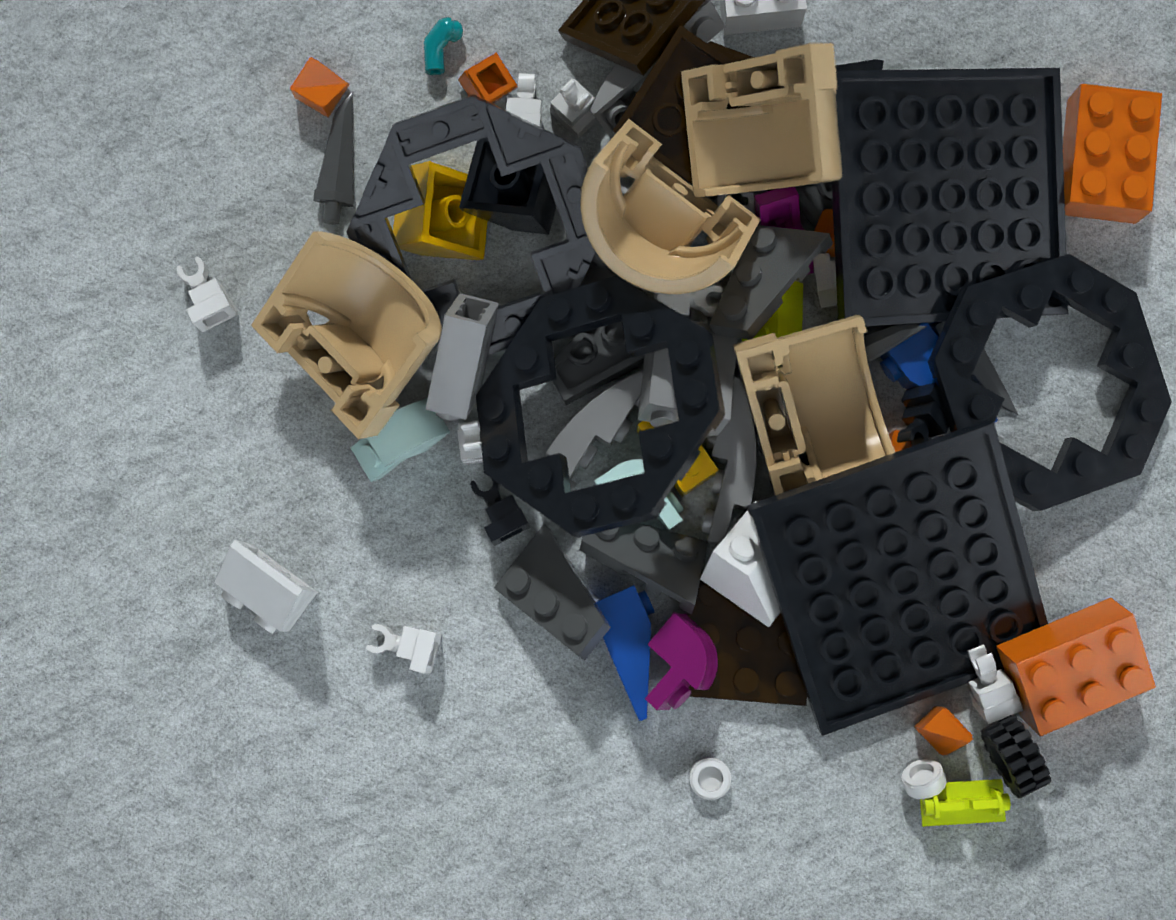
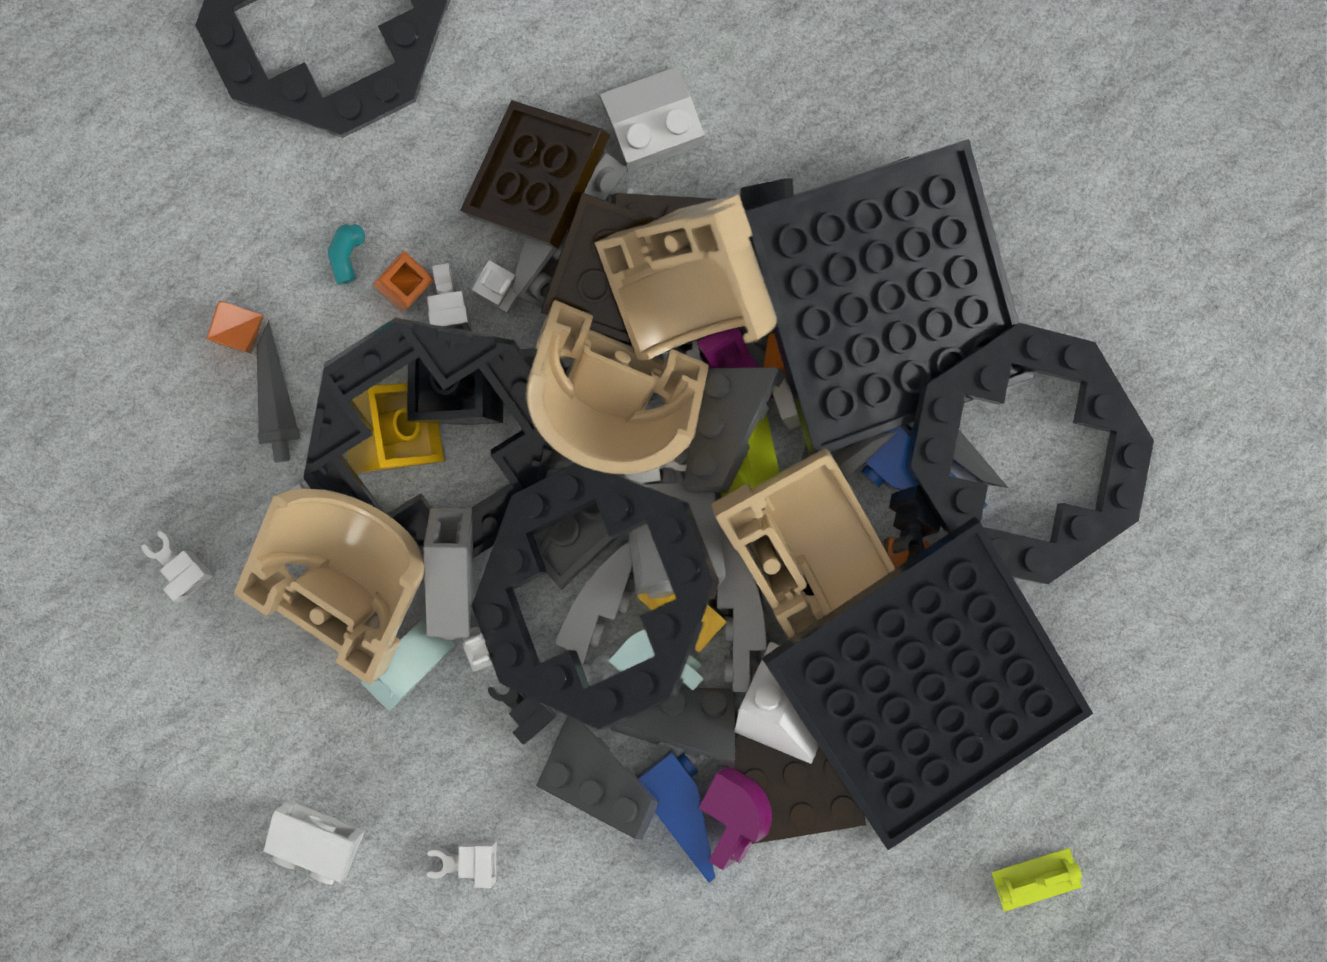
camera: 20 degrees left, 5 degrees up
(710, 778) = (790, 916): white tile -> none
(924, 779) = (994, 867): white tile -> none
(943, 730) = (1002, 816): orange slope -> none
(993, 691) = (1039, 766): white piece -> none
(1016, 756) = (1076, 826): black tyre -> none
(1077, 666) = (1115, 725): orange brick -> none
(1110, 152) = (1039, 206): orange brick -> none

